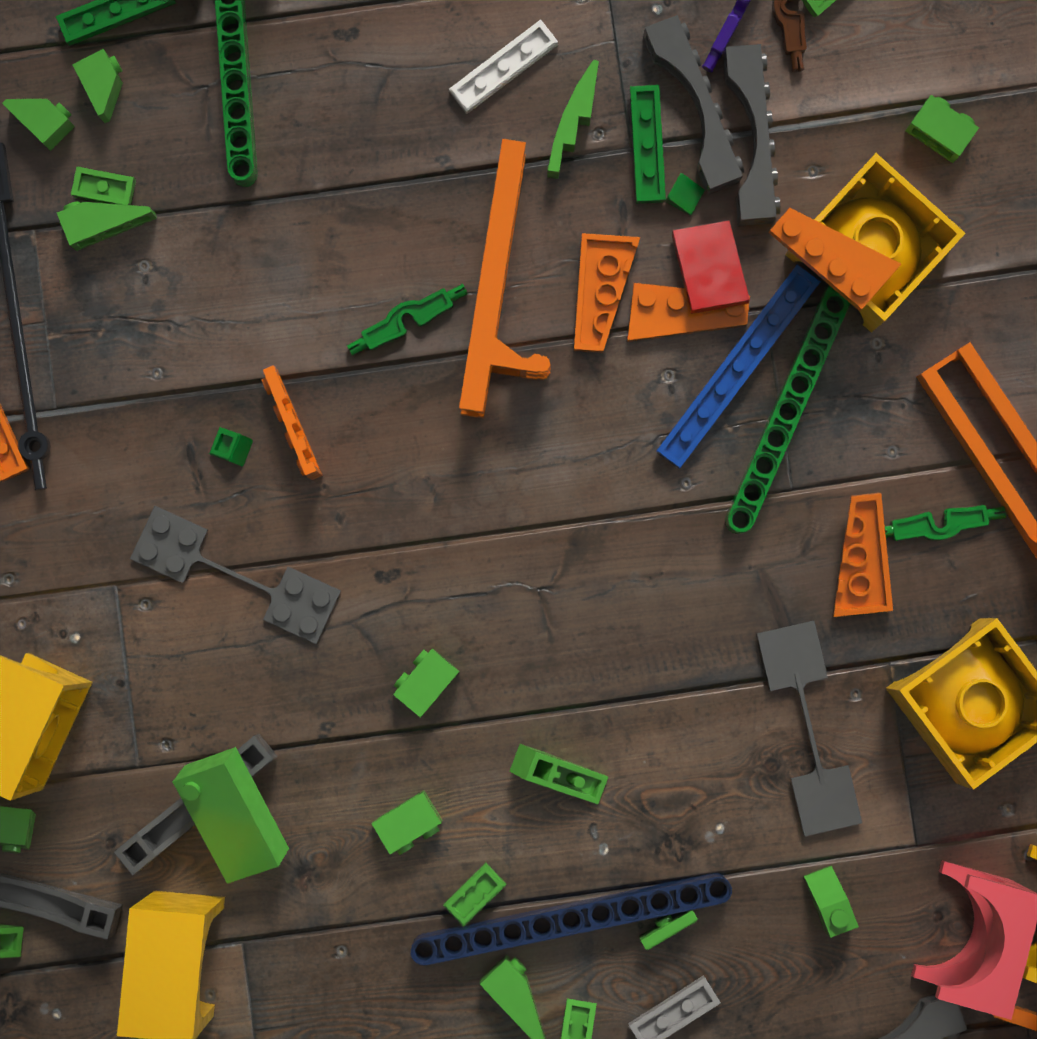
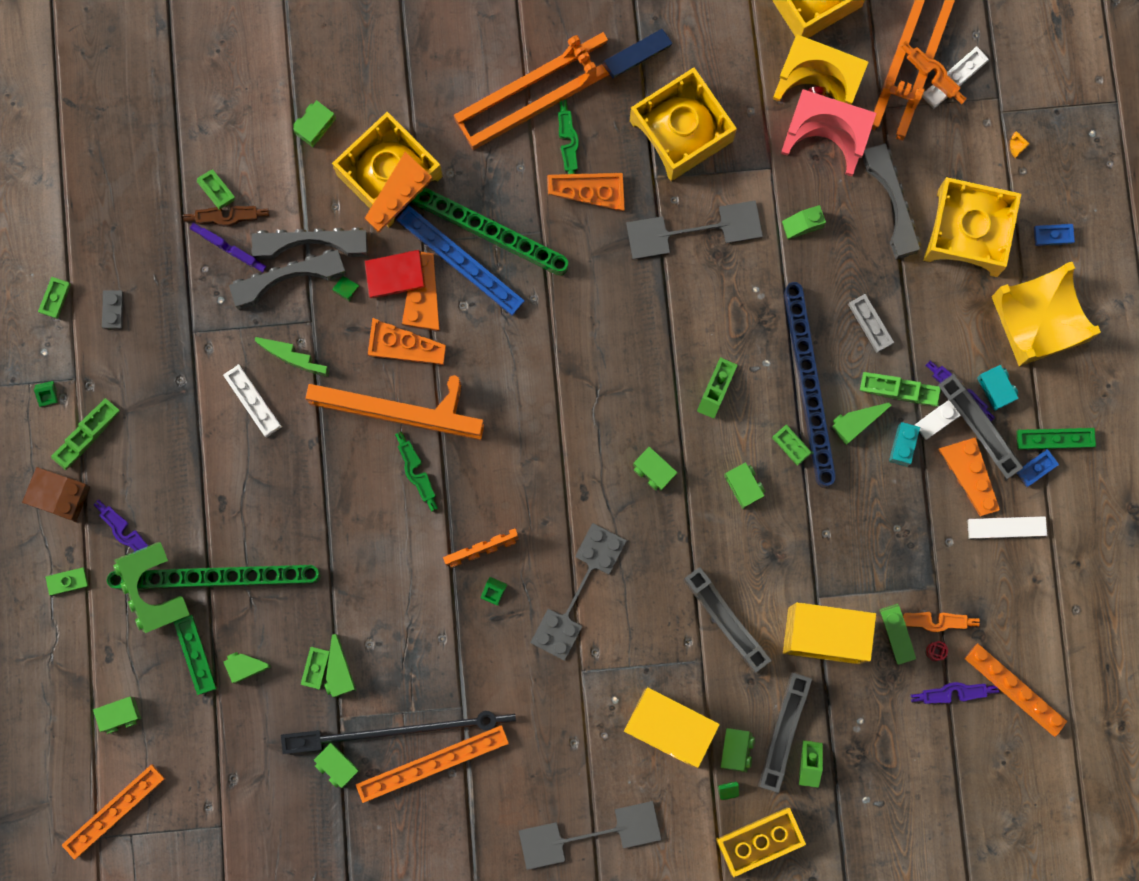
camera: 90 degrees left, 5 degrees down
(42, 118) = (266, 707): bright green slope -> none
(231, 815) = (735, 595): bright green brick -> none
(647, 144) = (311, 310): green plate -> none
(666, 927) = (816, 324): bright green plate -> none

